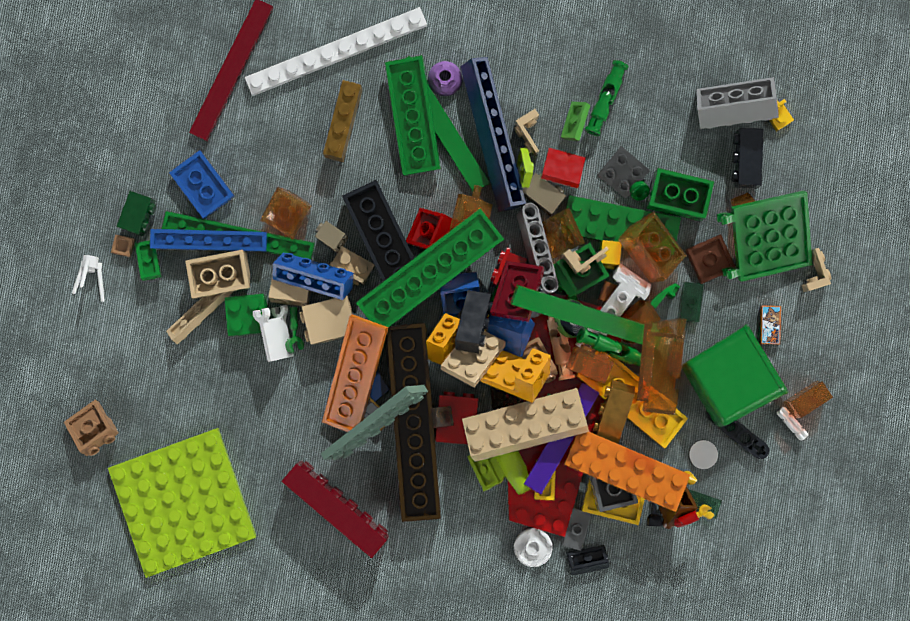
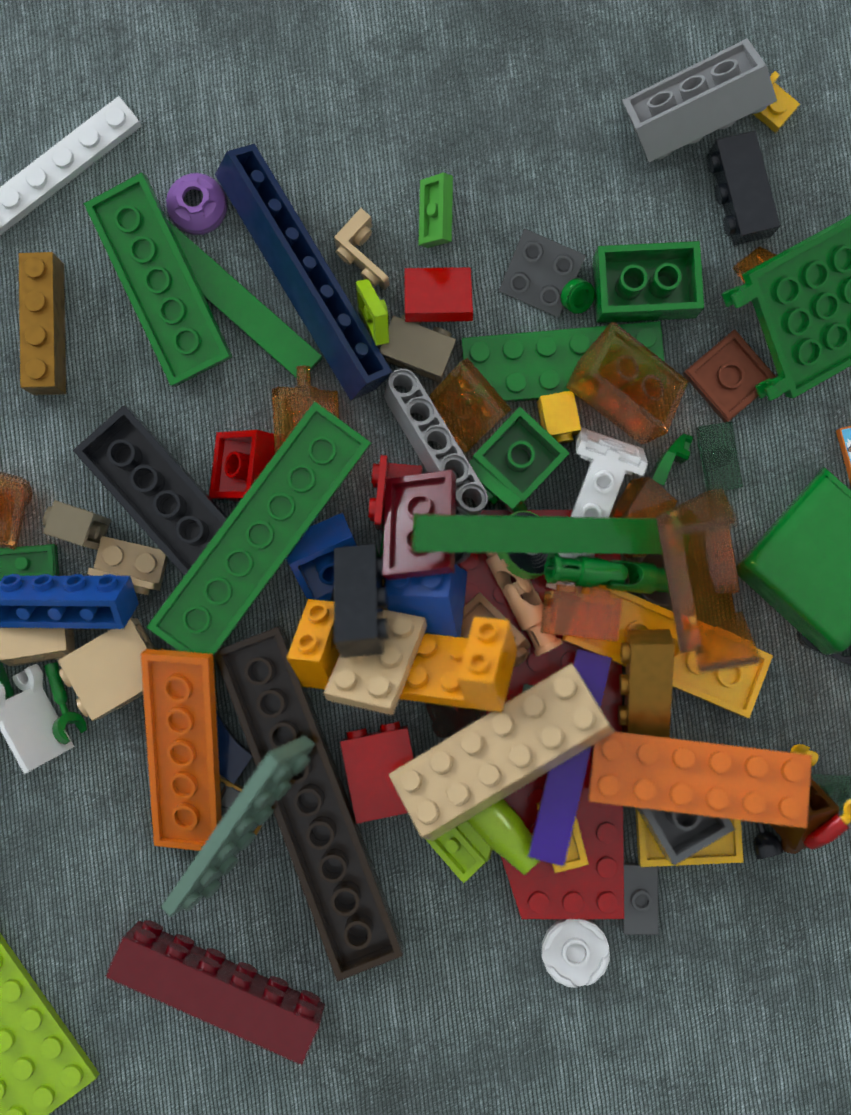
camera: 15 degrees left, 0 degrees up
(442, 417) = (354, 779): clear smoke plate -> none
(573, 259) = (501, 444): tan bracket -> none
(588, 560) = (674, 945): black slope -> none
(605, 99) = (473, 179): green piece -> none
(606, 291) = (572, 480): dark orange plate -> none
(703, 454) = (815, 708): white sticker -> none

